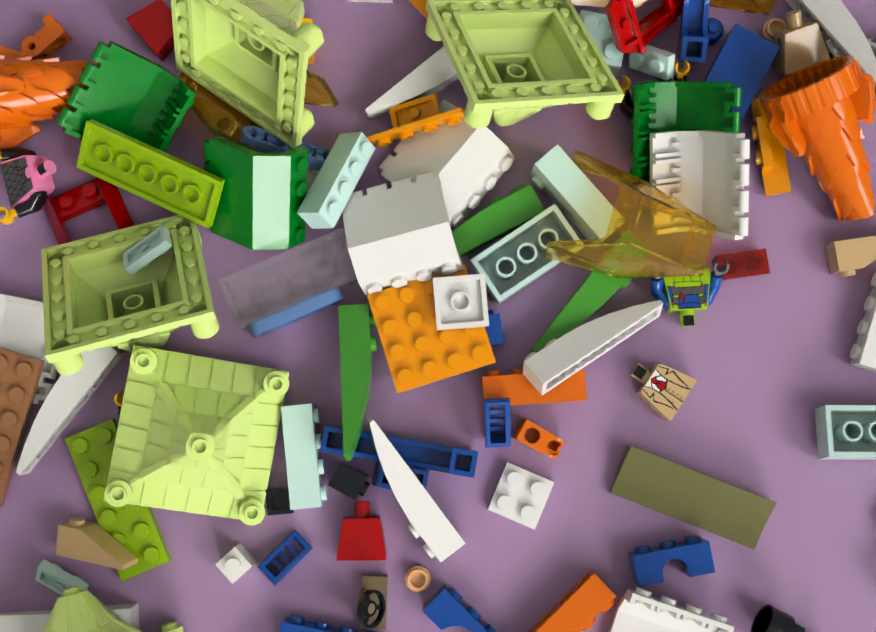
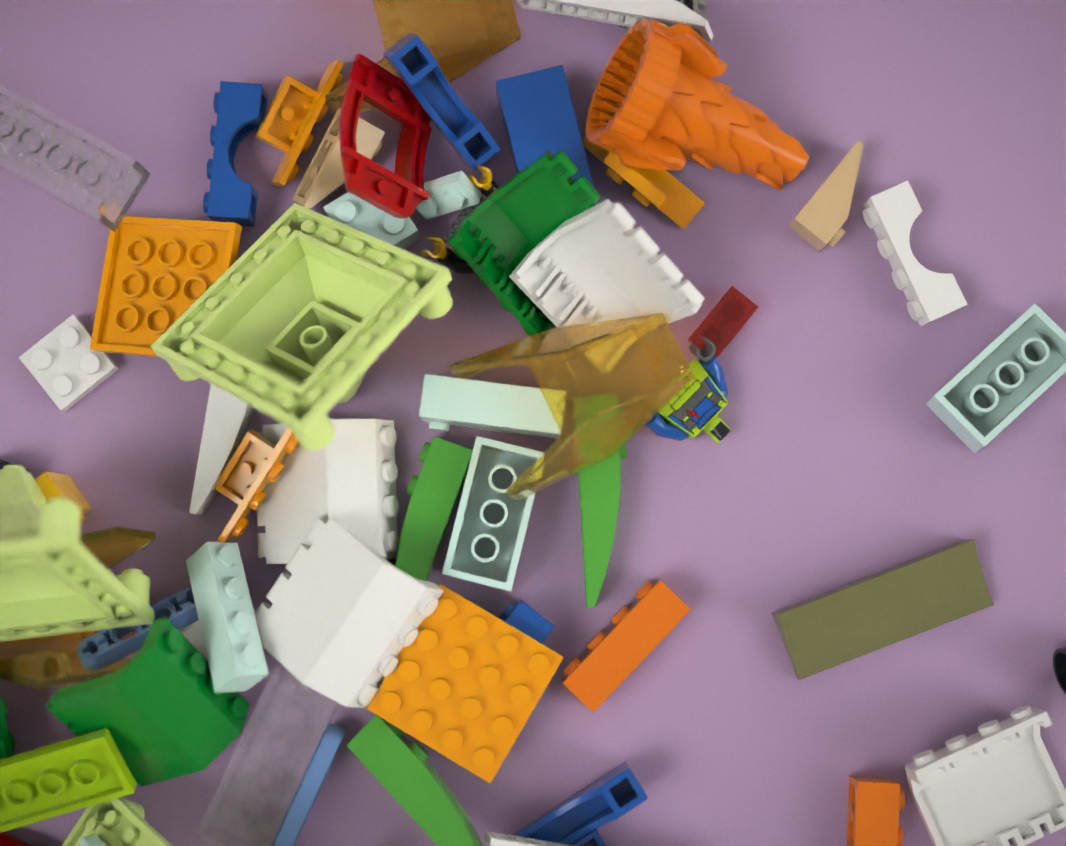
camera: 45 degrees left, 0 degrees up
(460, 302) = (471, 631): white plate -> none
(497, 439) = (636, 731): blue slope -> none
(520, 495) = (711, 766): white plate -> none
(538, 438) = (677, 692): orange leg -> none
(585, 344) = (637, 555): white slope -> none
(649, 562) = (900, 714): blue arch -> none
(663, 388) = (756, 524): tan torso -> none
(715, 30) = (479, 104): blue piece -> none
(771, 26) = (541, 49): light nougat plate -> none
(799, 44) = (579, 44): tan torso -> none

